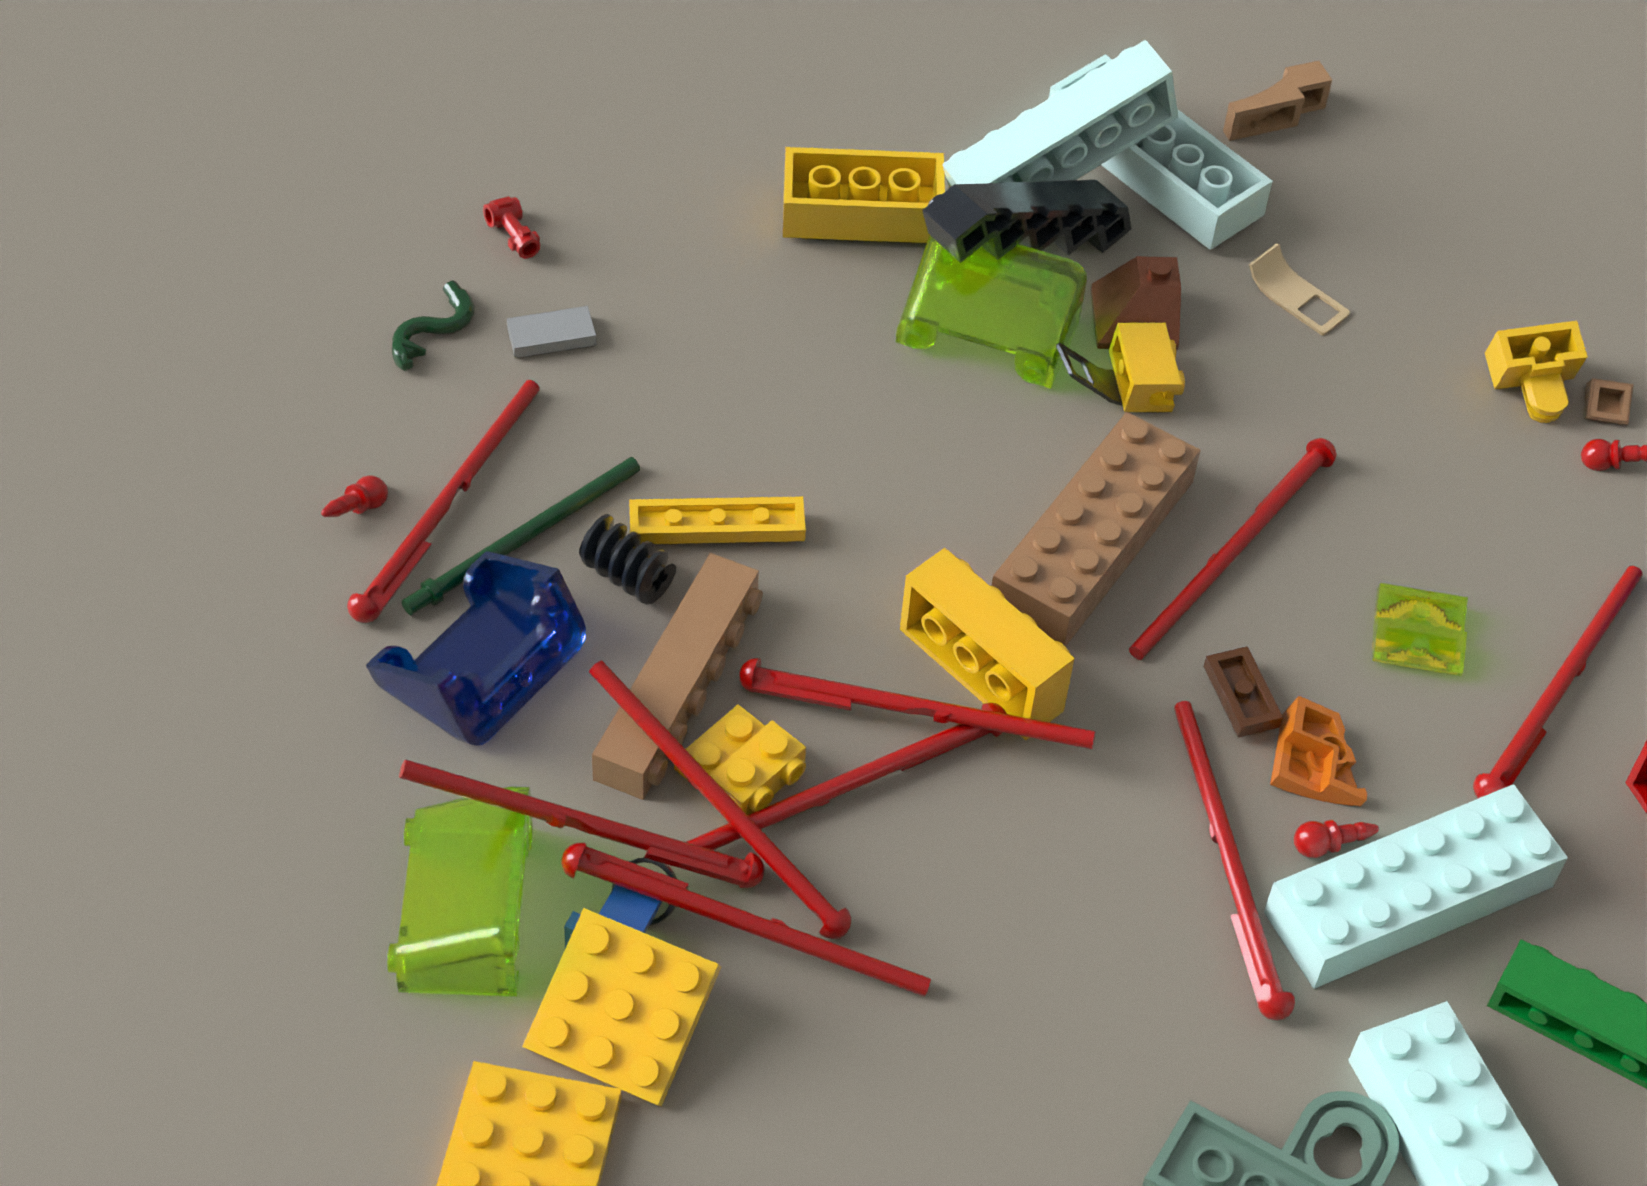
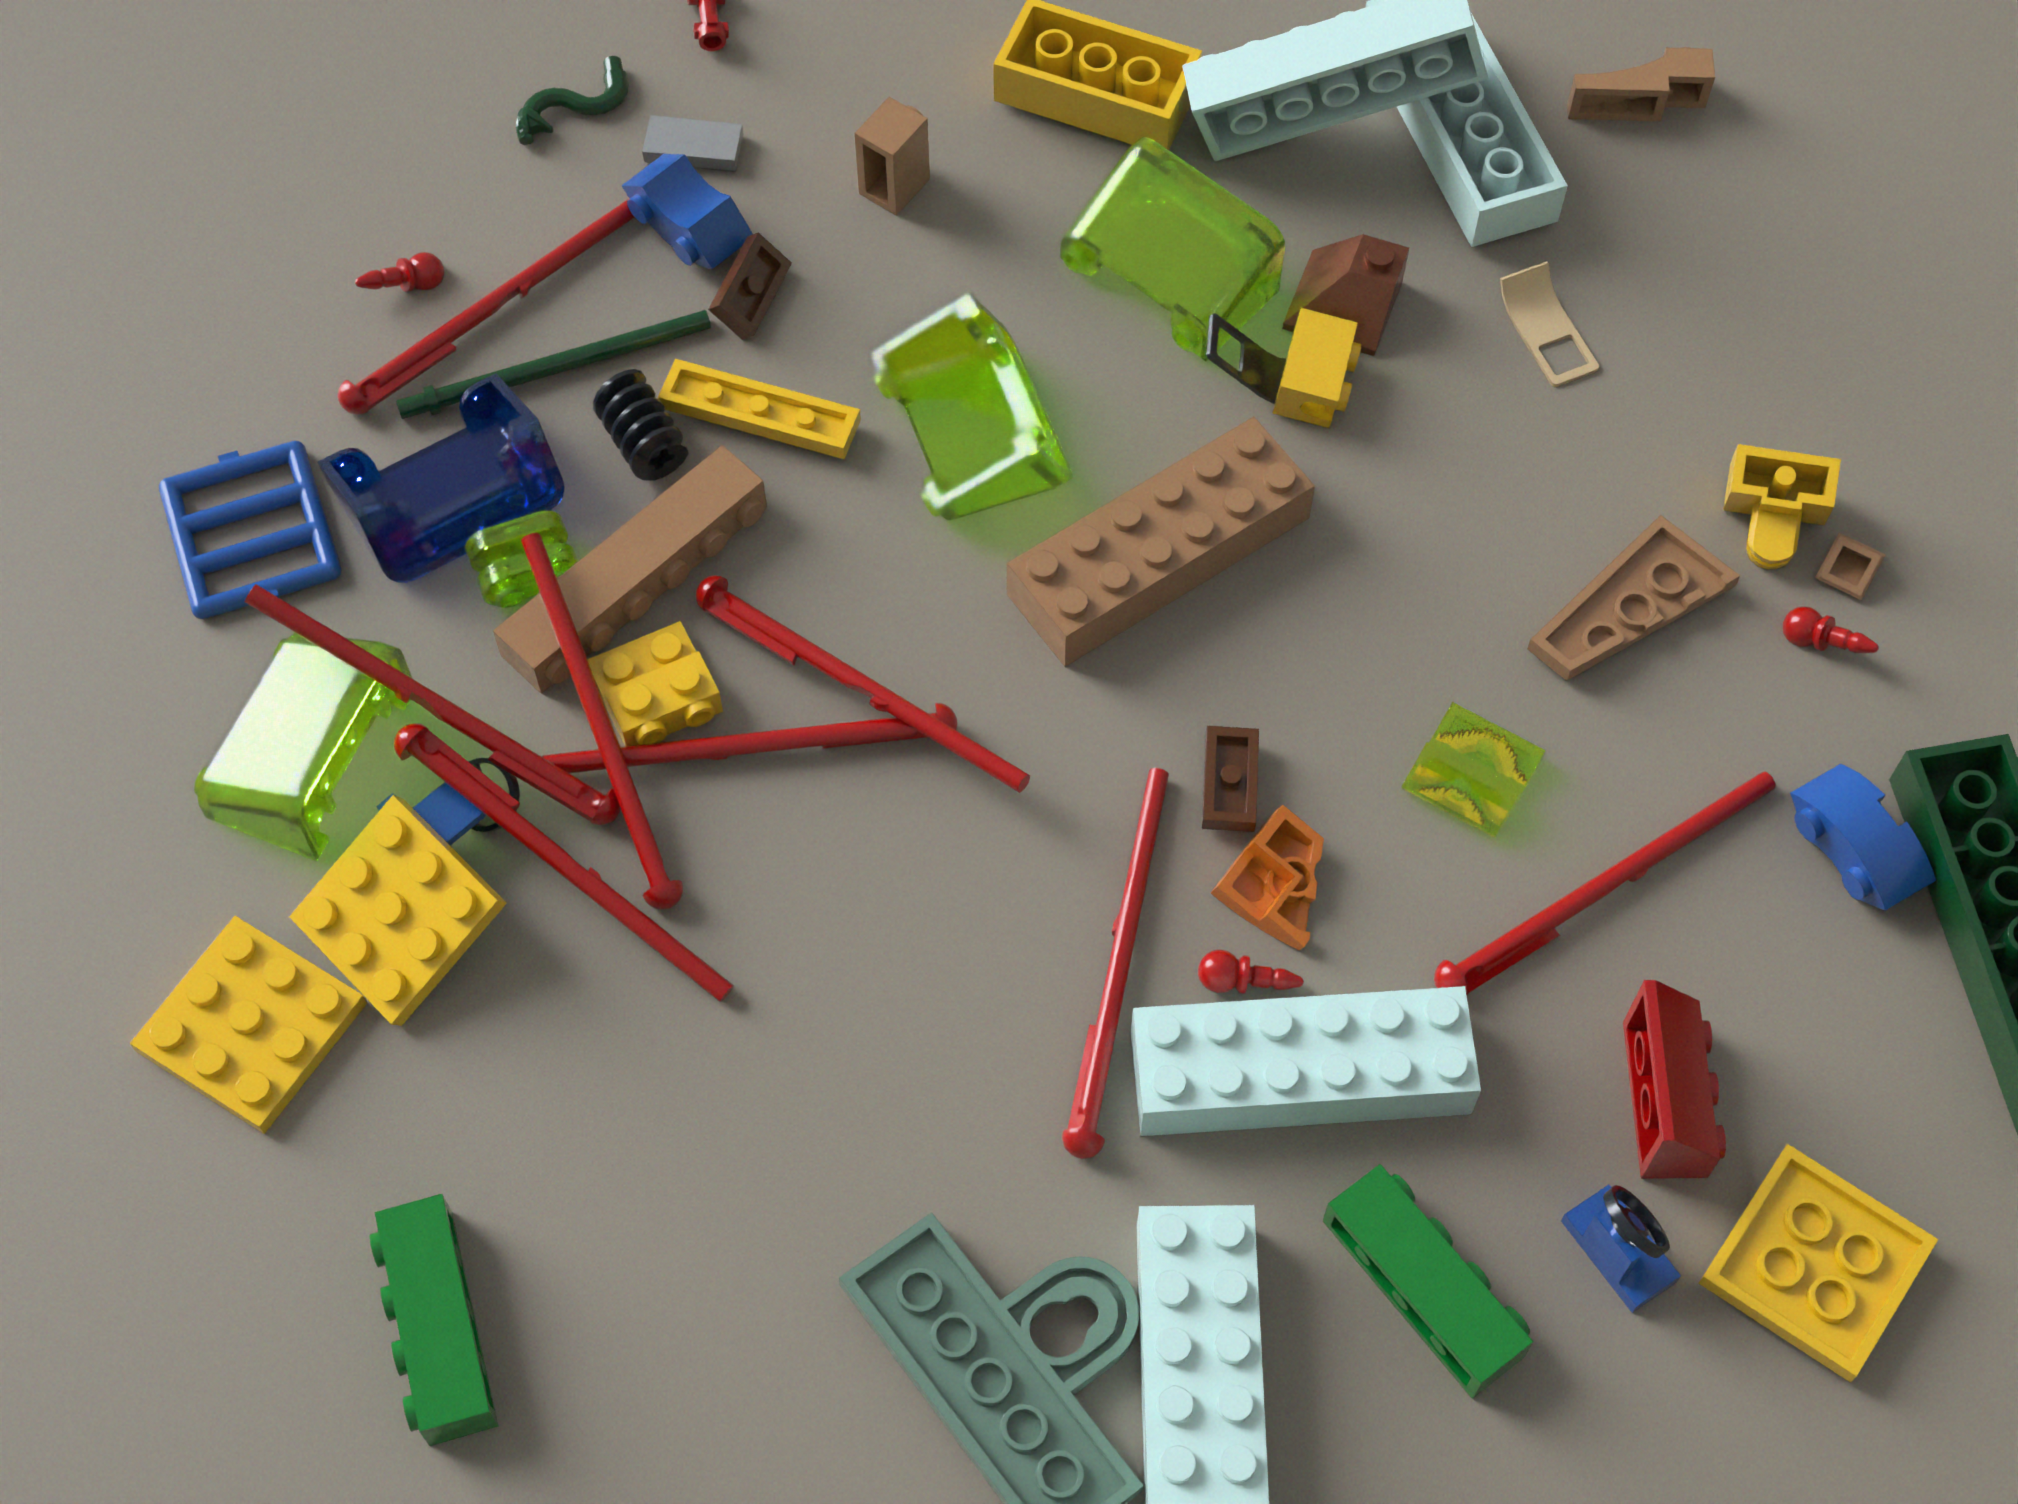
camera: 25 degrees right, 10 degrees up
(288, 787) = (232, 467): none -> blue bar
(574, 695) = (502, 562): none -> clear neon green brick
(579, 383) = (686, 211): none -> blue brick
(661, 427) = (750, 286): none -> reddish brown plate
(734, 294) = (892, 155): none -> medium nougat piece
(894, 474) = (971, 411): none -> clear neon green windscreen
(984, 639) = (964, 634): yellow brick -> none
(1027, 215) = (1247, 148): black brick -> none
(1319, 453) = (1468, 528): red bar -> none
(1468, 469) = (1632, 597): none -> medium nougat wing

